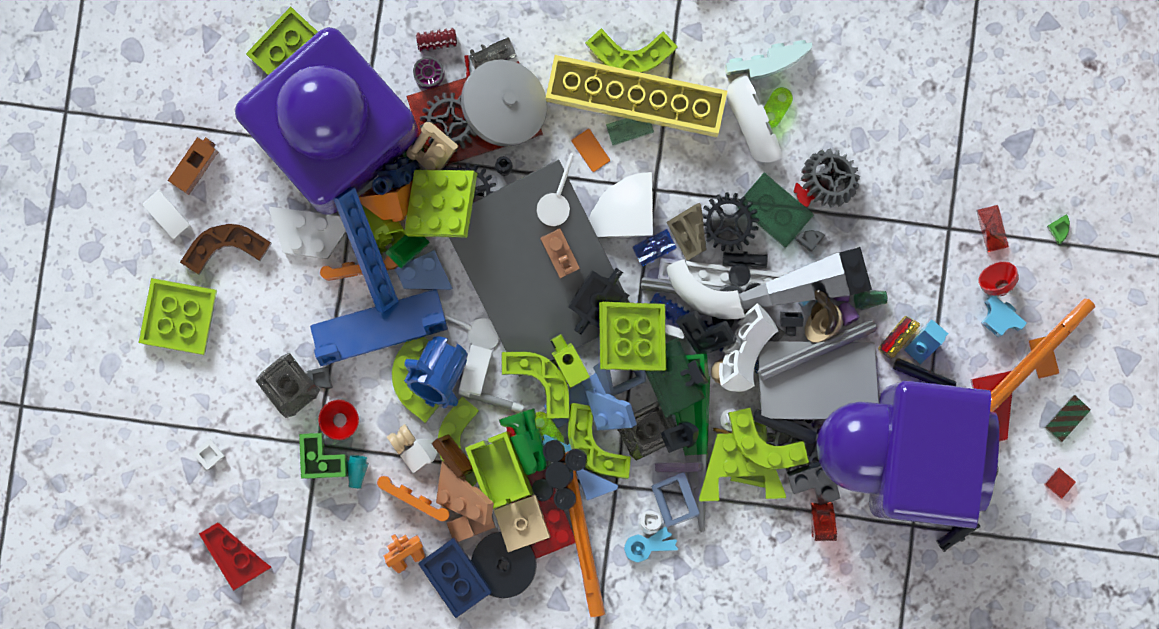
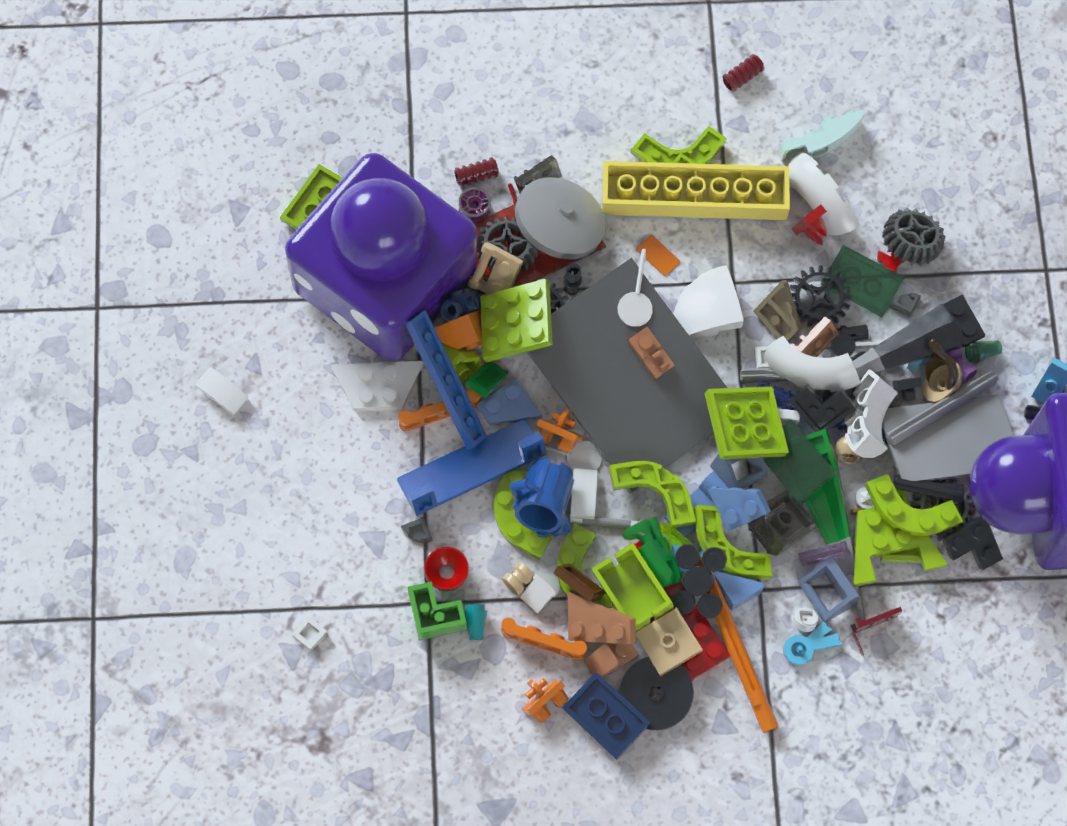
camera: 10 degrees left, 15 degrees down
(177, 316) = (251, 493): lime plate -> none
(193, 165) = (243, 336): dark orange brick -> none
(223, 236) = (289, 402): reddish brown plate -> none
(233, 558) = (355, 739): red wing -> none
(287, 385) = (385, 543): clear smoke slope -> none
(466, 306) = (568, 437): none -> orange hips
(573, 370) = (691, 468): lime torso -> none
(592, 292) = (690, 396): black plate -> none
(627, 130) = (692, 229): clear green tile -> none
(654, 247) = (747, 335): clear blue hips -> none
(680, 436) = (819, 521): black tile -> none
(697, 374) = (823, 447): black tile -> none
(715, 266) = (818, 338): none -> nougat plate
(720, 534) = (863, 625): none -> dark red piece
(737, 150) = (812, 225): none -> red tile
(777, 107) = (842, 179): clear neon green plate -> none
(823, 522) = (991, 586): clear red slope -> none
(898, 337) = (1022, 384): slope -> none

